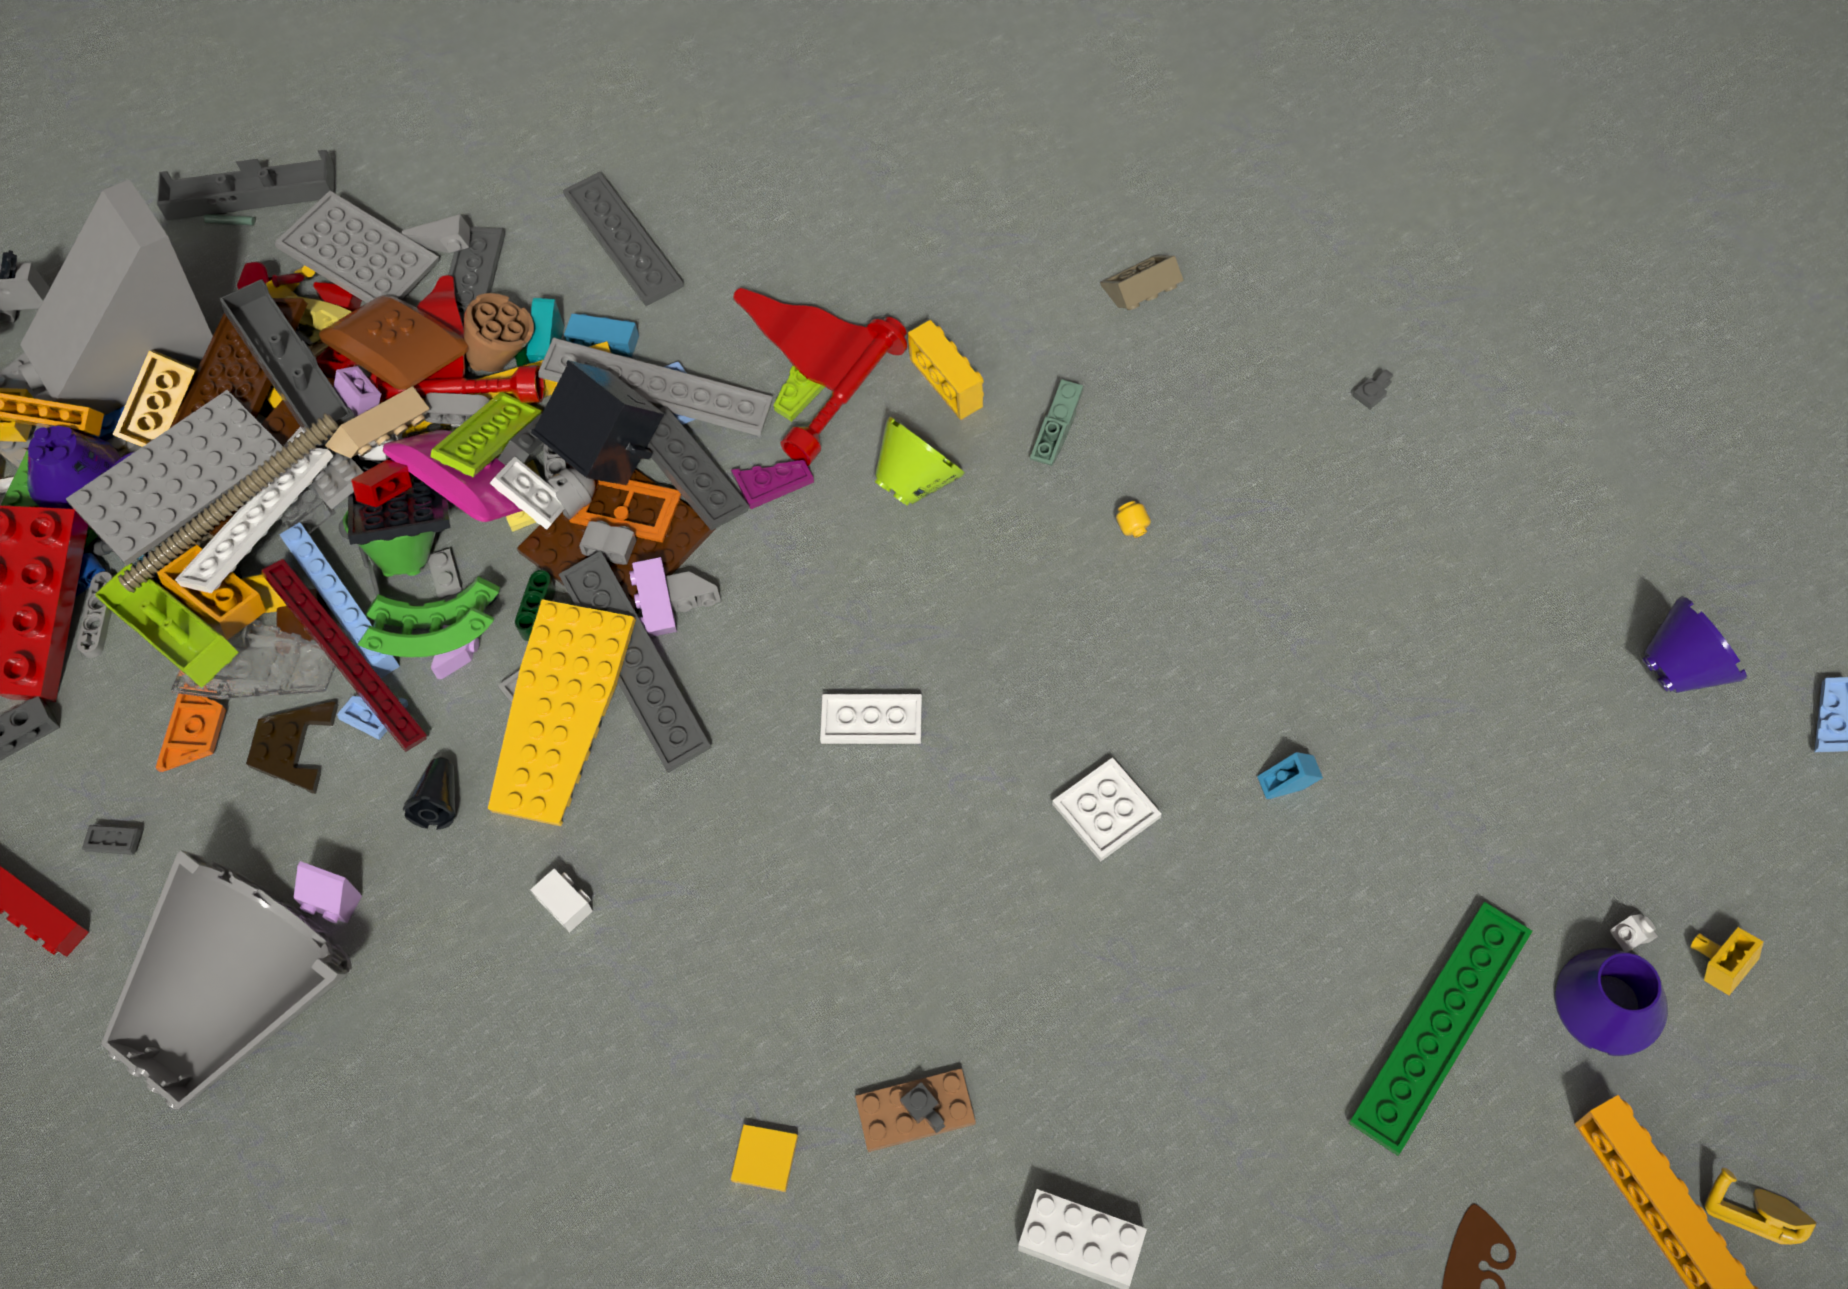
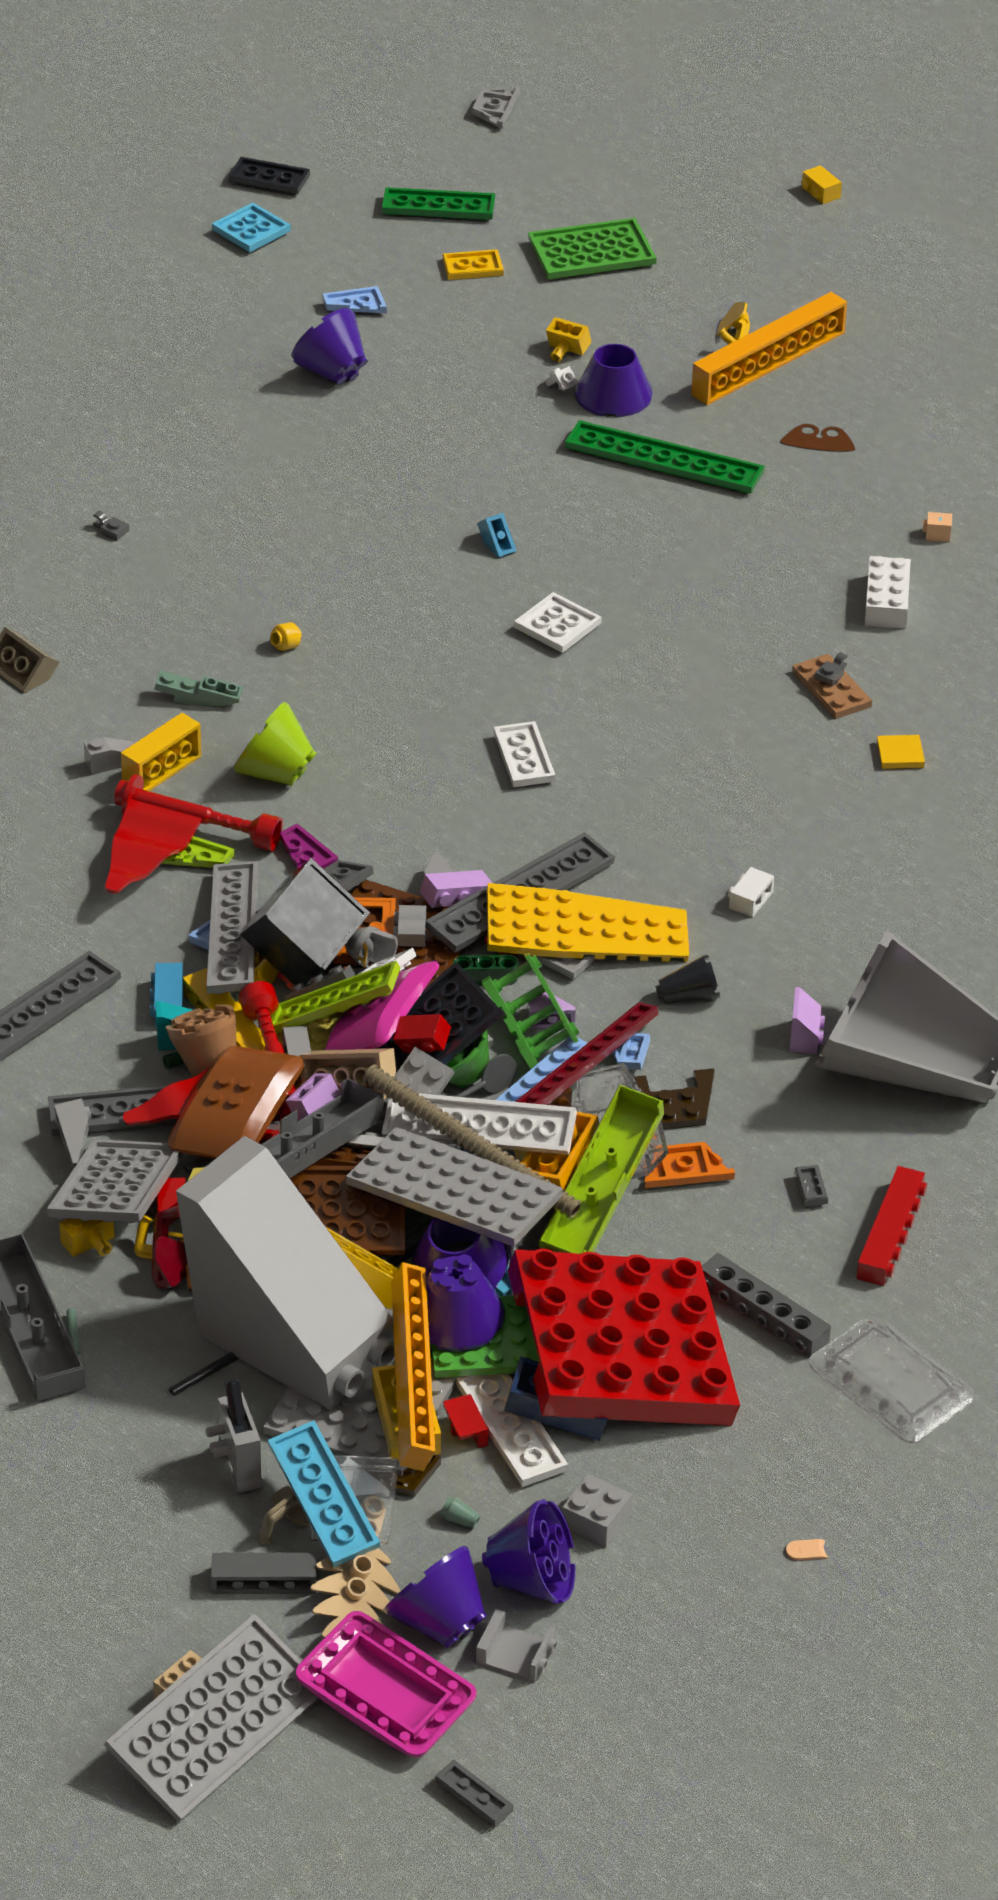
camera: 110 degrees left, 20 degrees down
(972, 338) = (104, 754): none -> light grey slope

